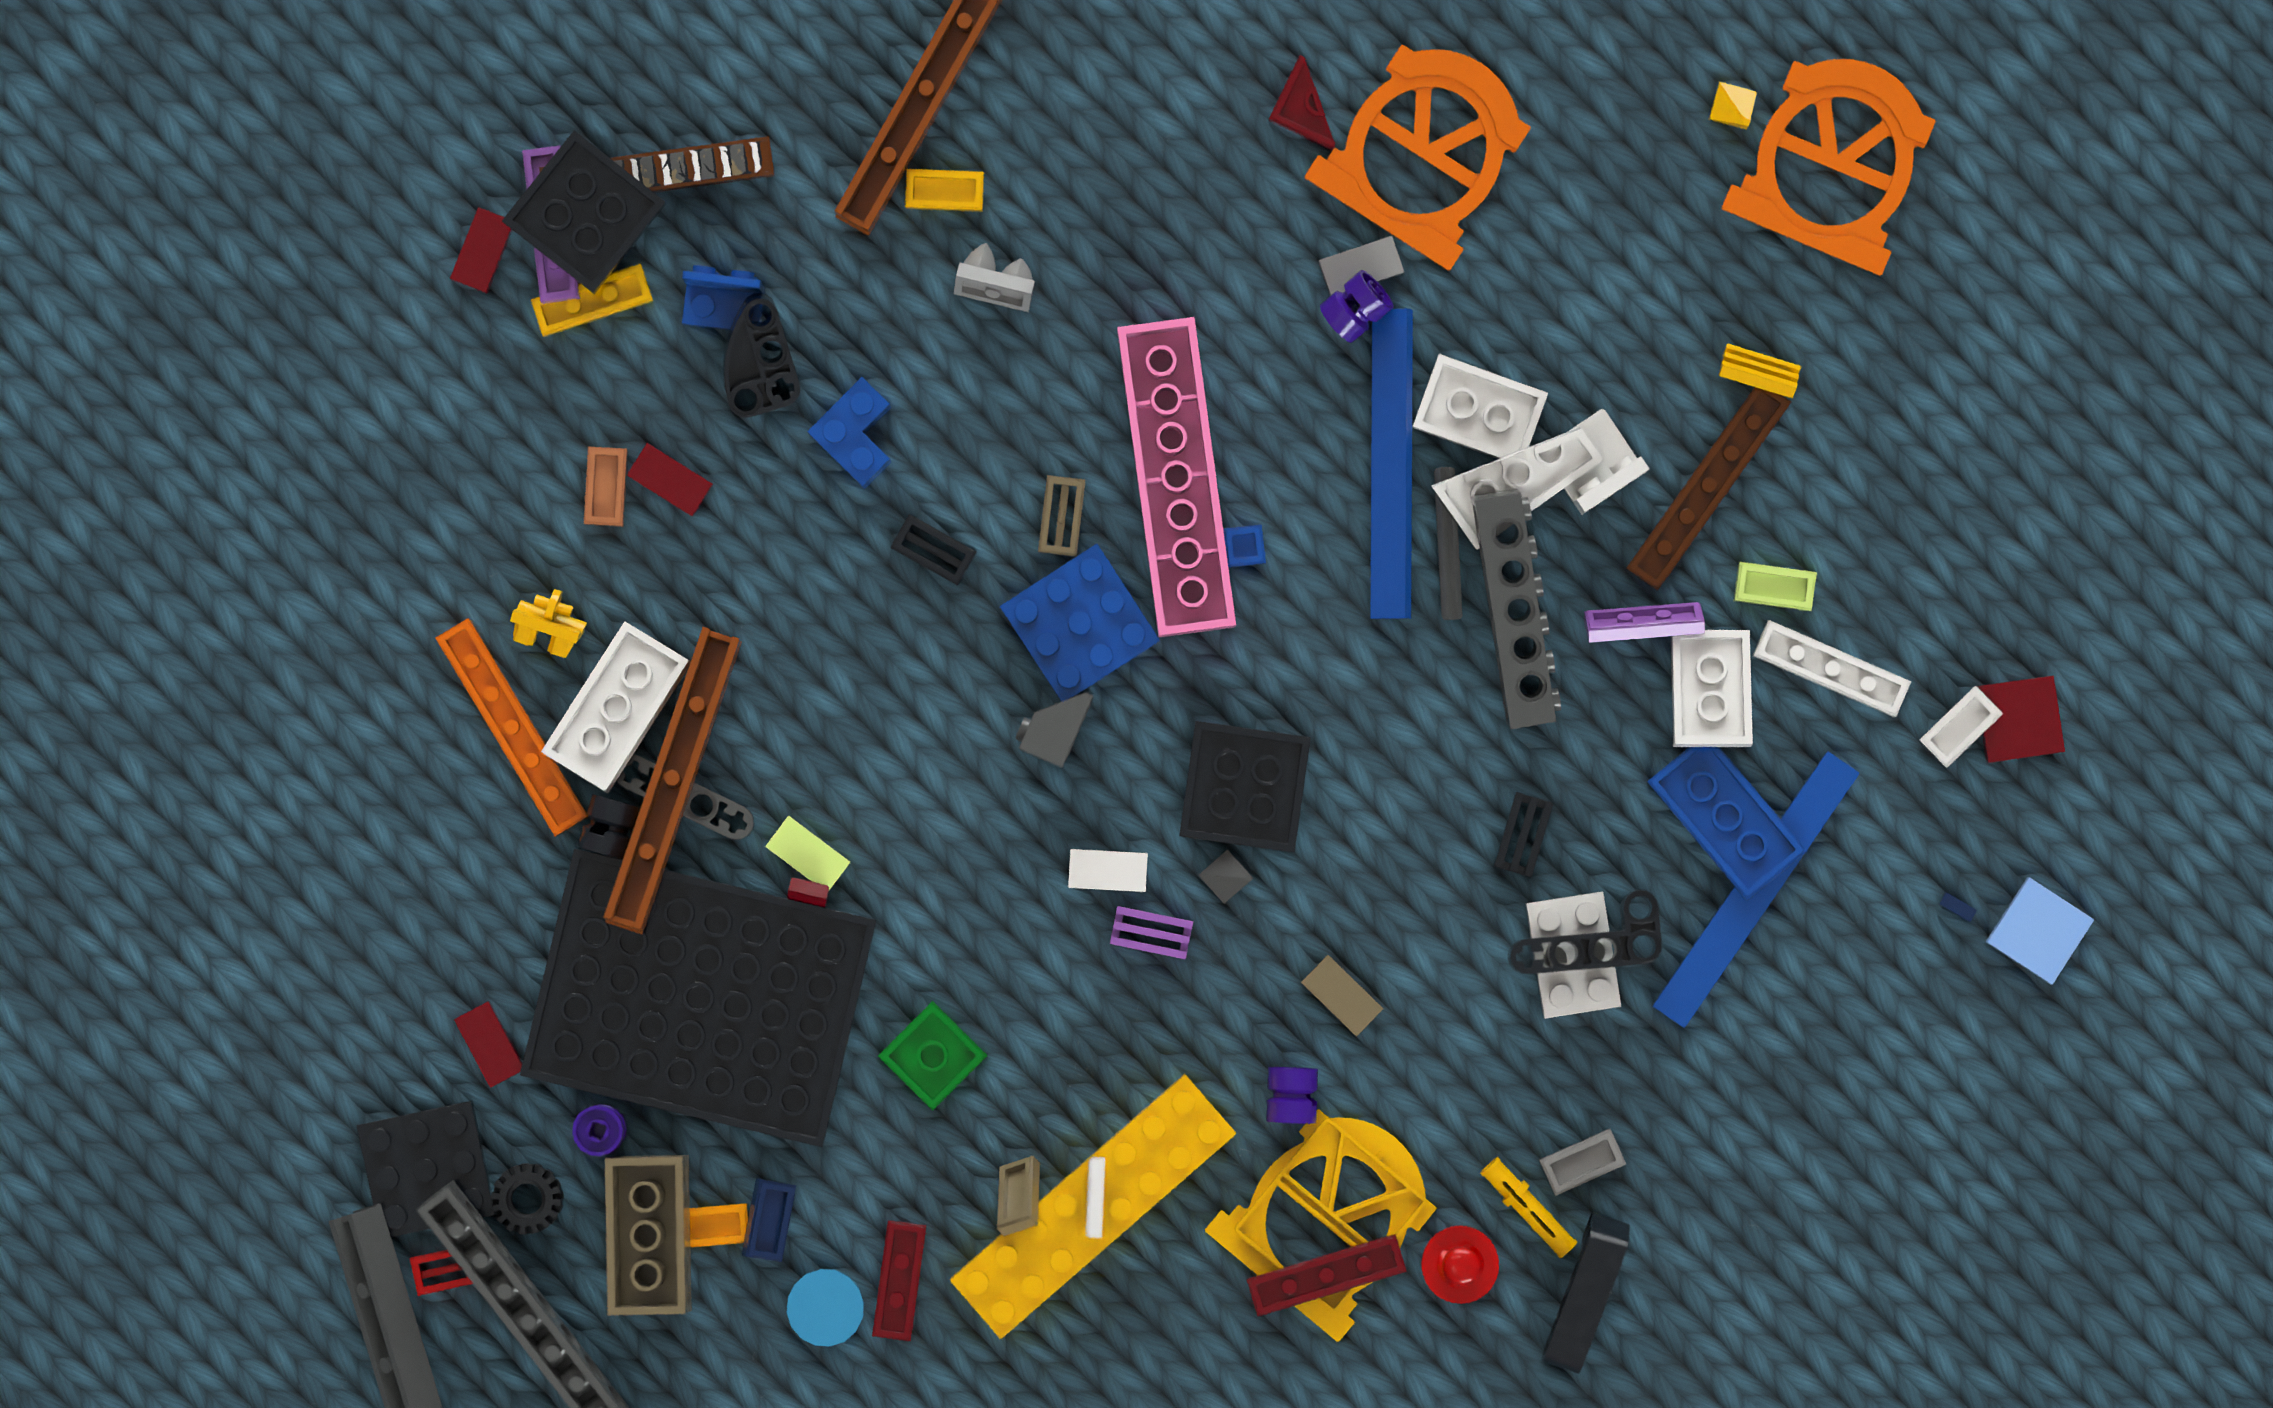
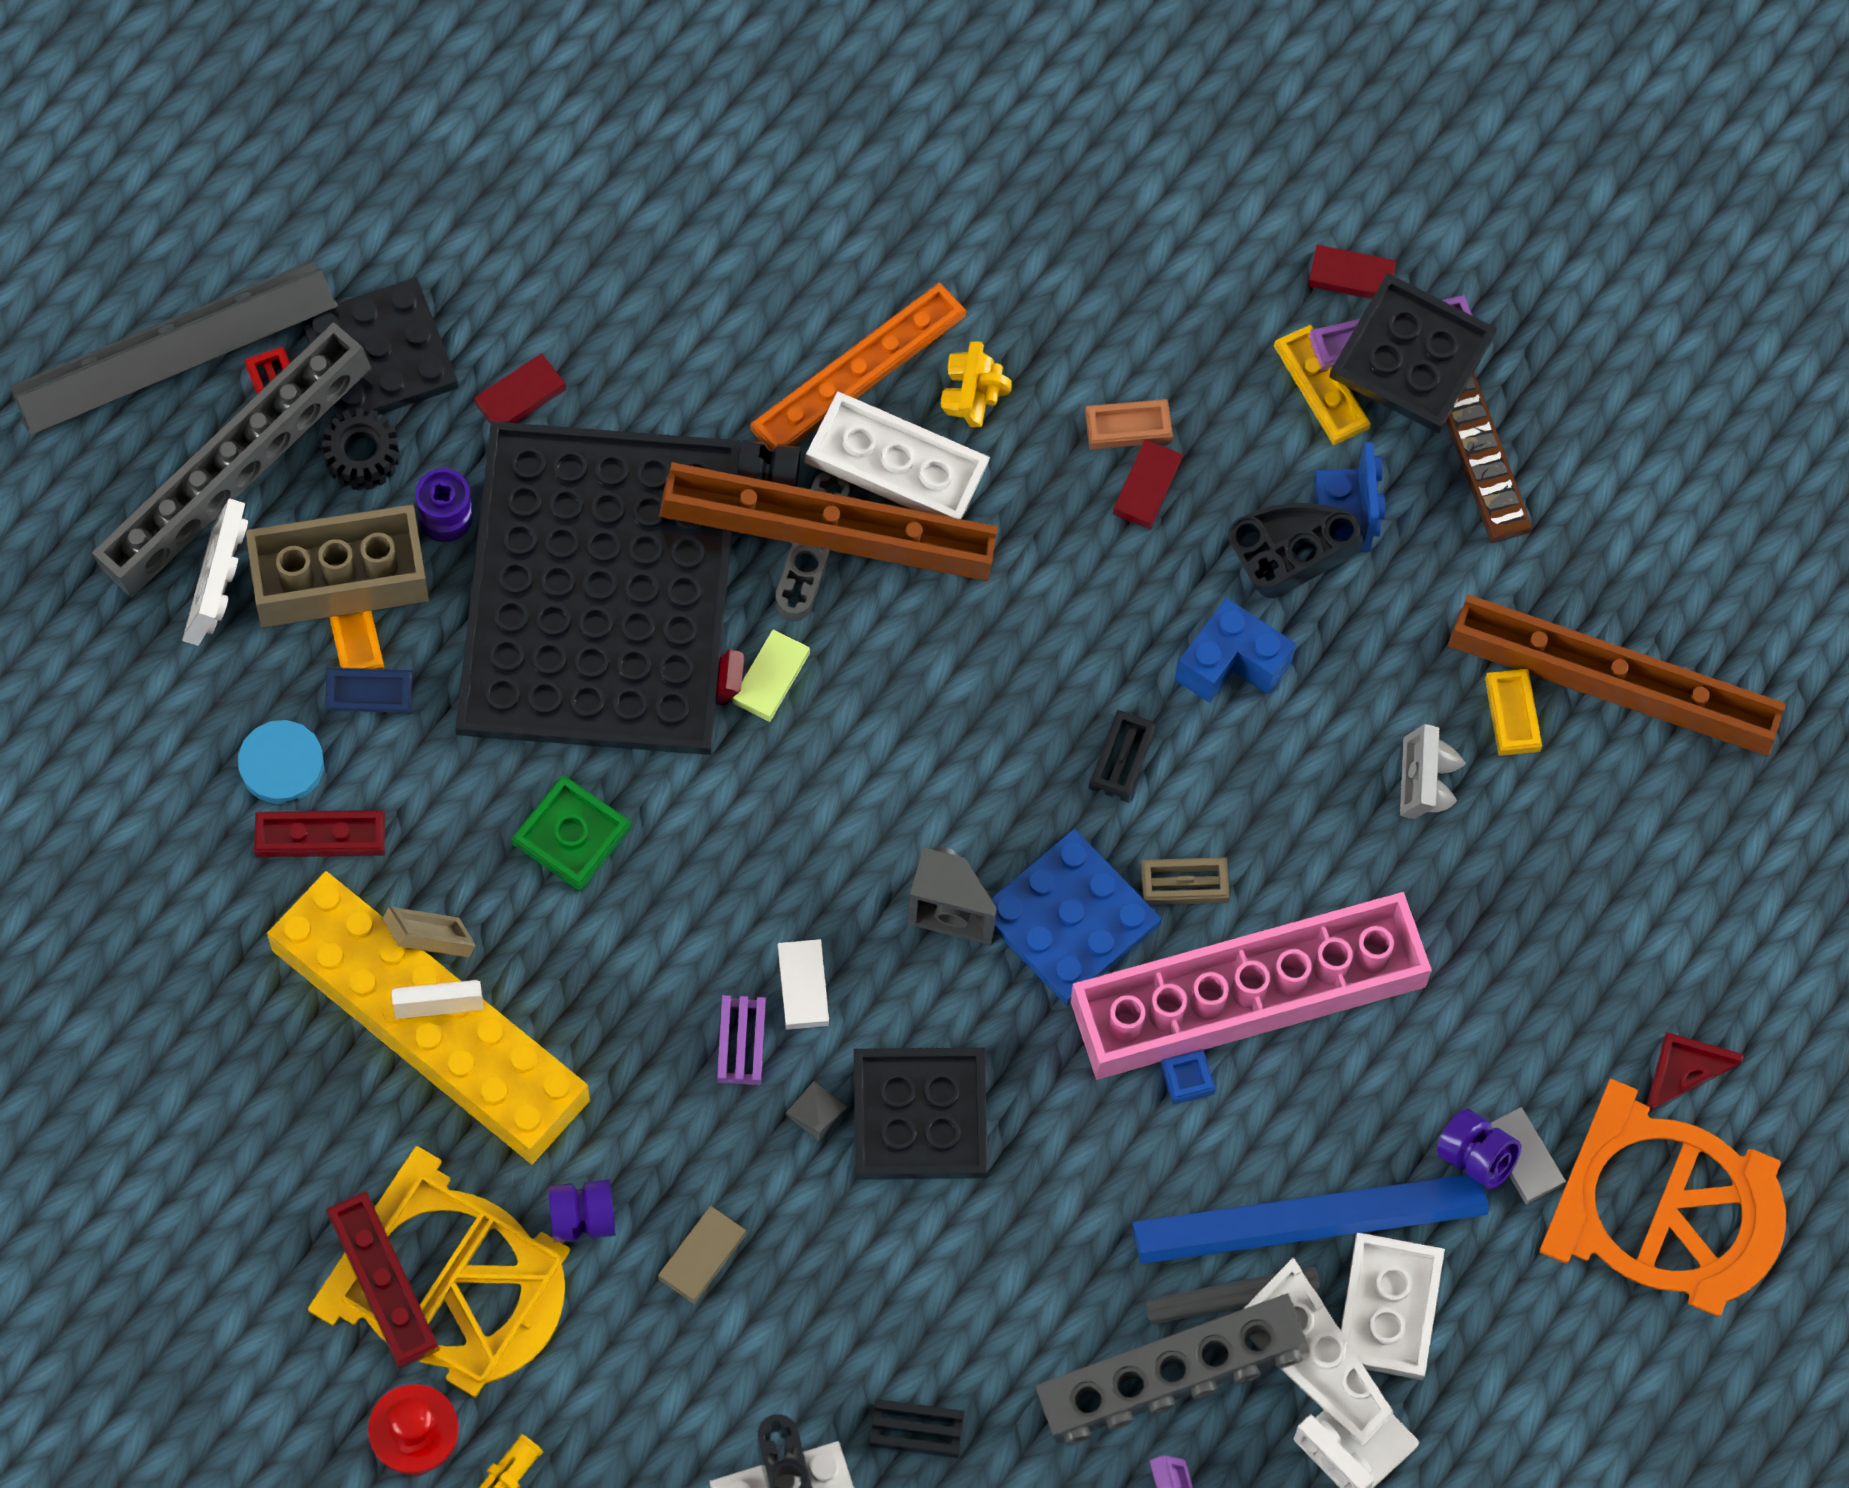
camera: 80 degrees right, 20 degrees down
(640, 1346) = (216, 571): none -> white plate

